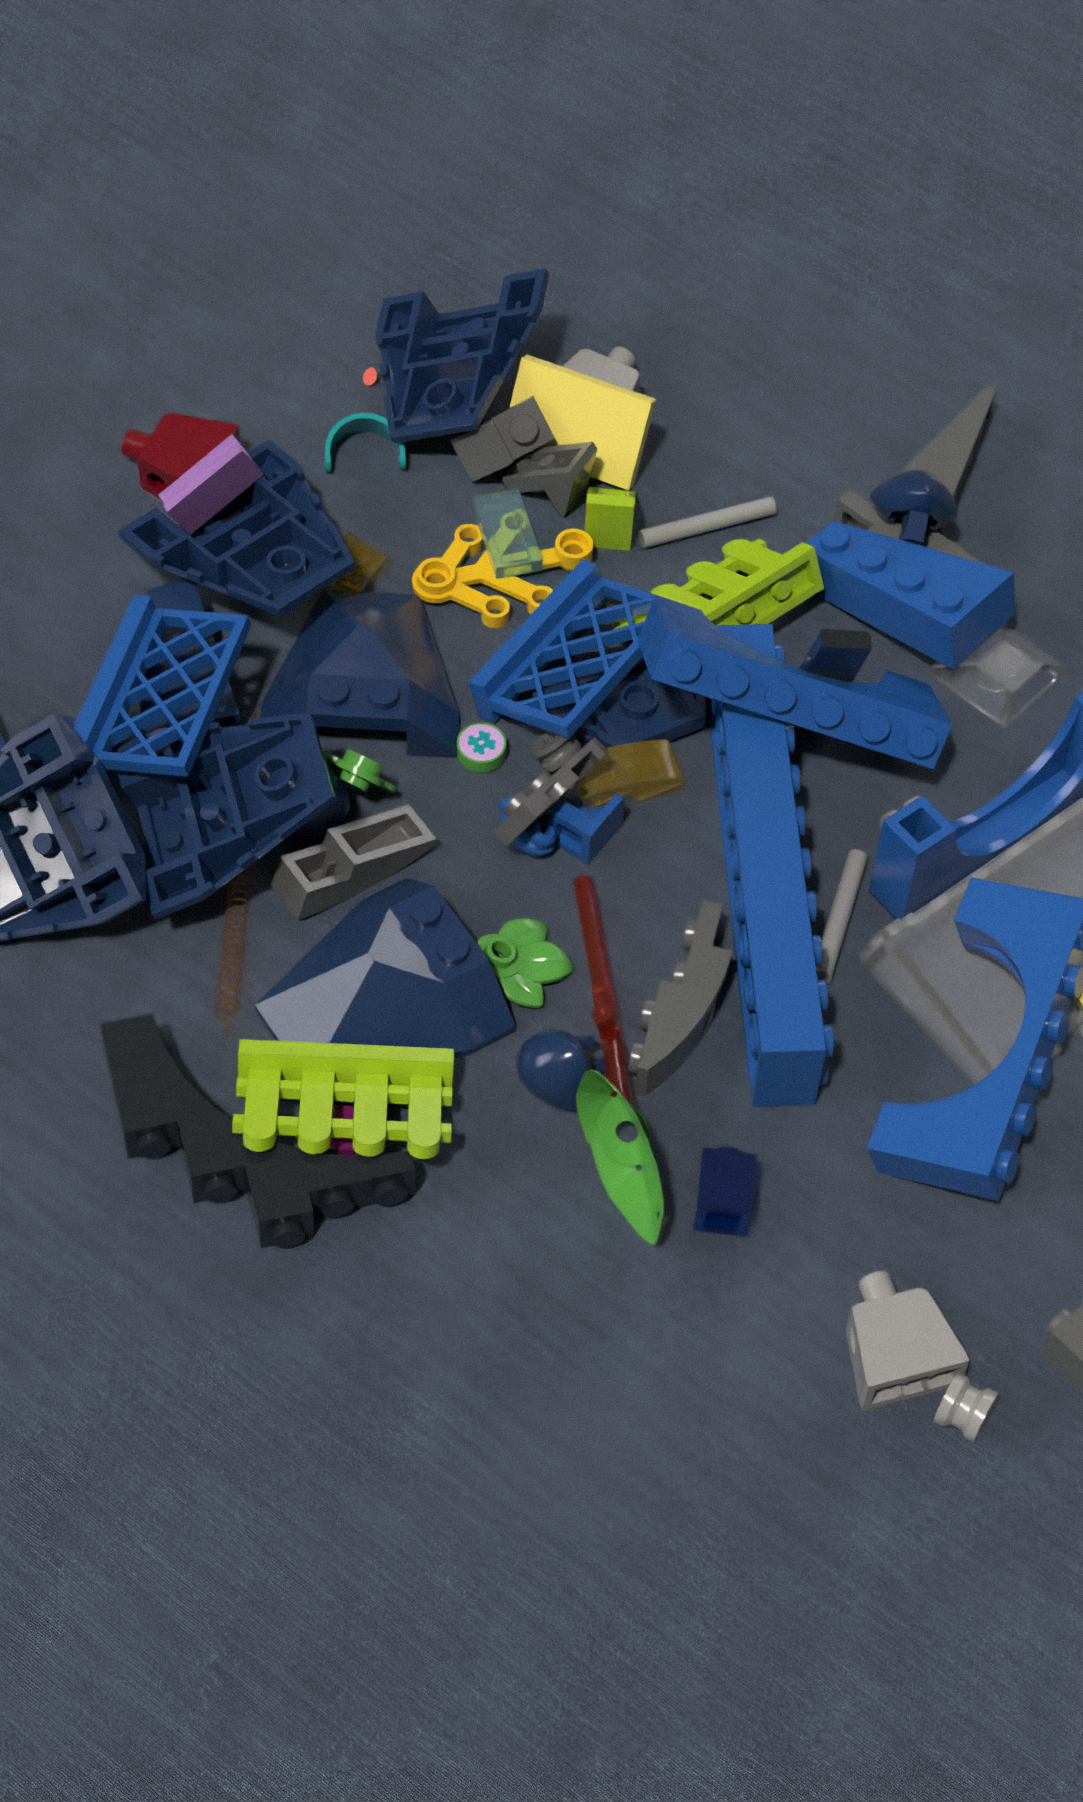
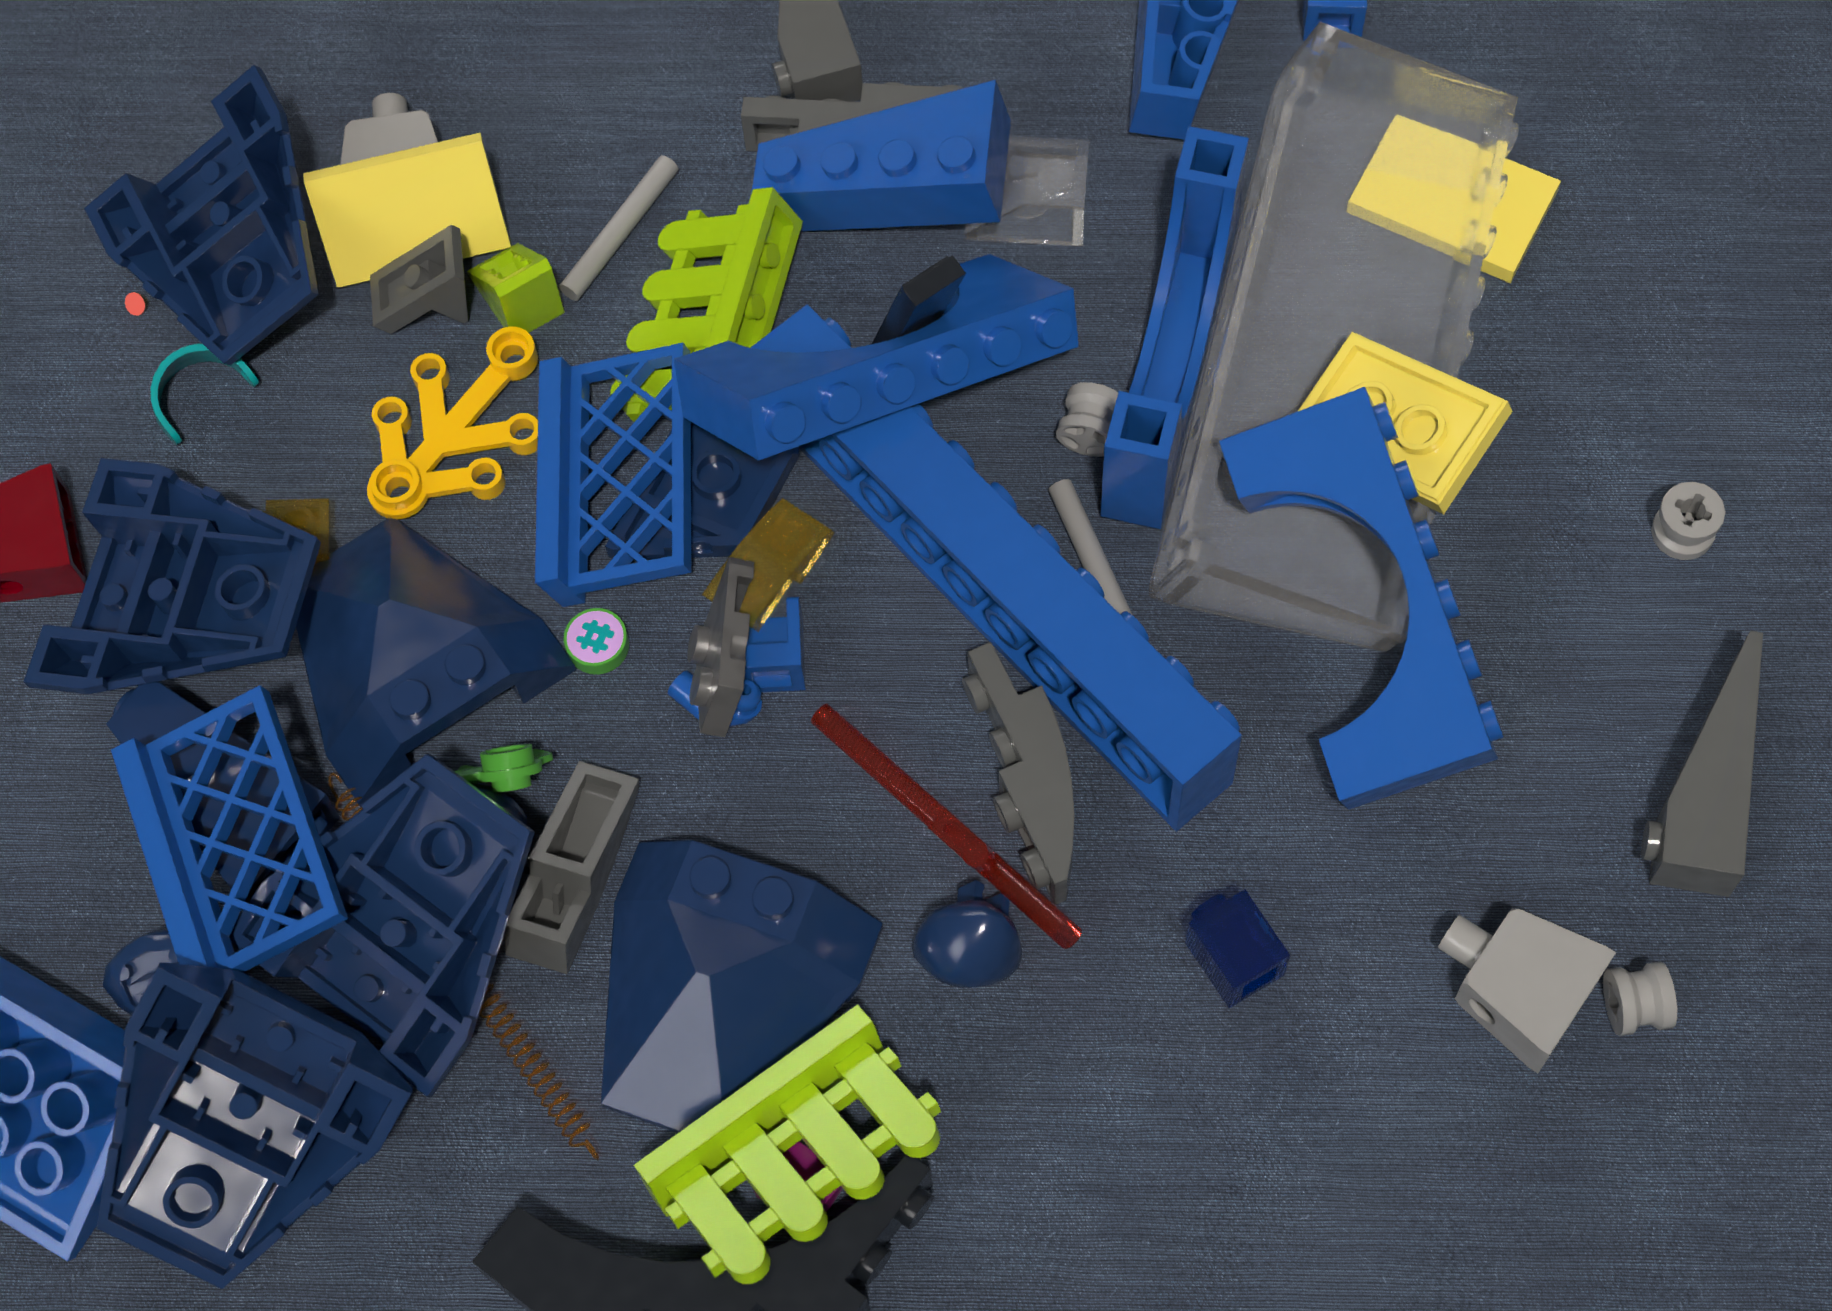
camera: 30 degrees left, 10 degrees up
(210, 484) = (80, 555): medium lavender panel -> none
(502, 439) = (346, 282): dark grey slope -> none
(507, 533) = (432, 384): clear light blue tile -> none
(524, 960) = (838, 843): bright green plate -> none
(554, 750) = (678, 594): dark grey bush -> none
(632, 1191) = (1143, 1010): bright green piece -> none
(916, 502) = (830, 65): dark blue piece -> none

